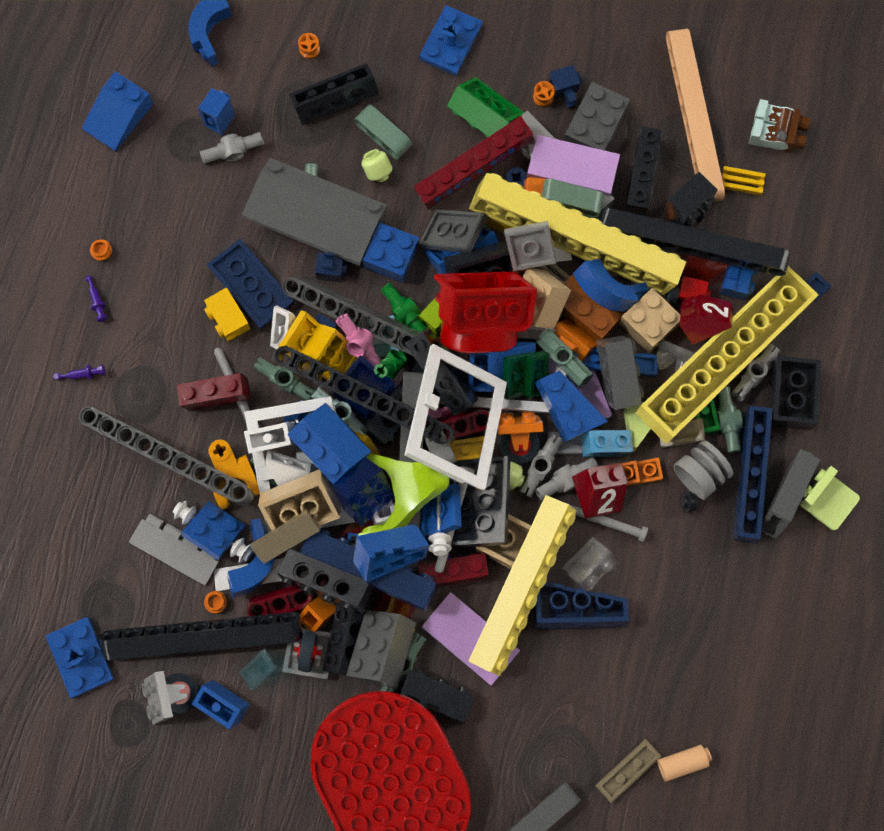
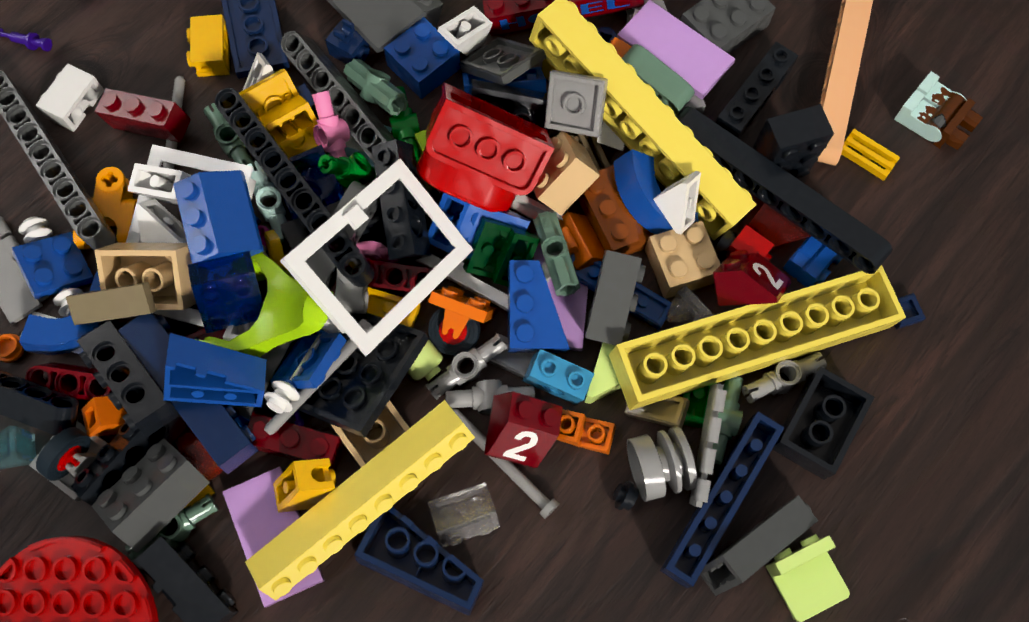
camera: 25 degrees right, 5 degrees down
(146, 402) = (69, 97): none -> white brick
(371, 292) = (375, 86): none -> sand green piece
(416, 218) = (467, 30): none -> white slope
(480, 590) = (303, 484): none -> yellow brick
(632, 283) = (680, 201): none -> white slope
(726, 437) = (709, 435): none -> light grey windscreen

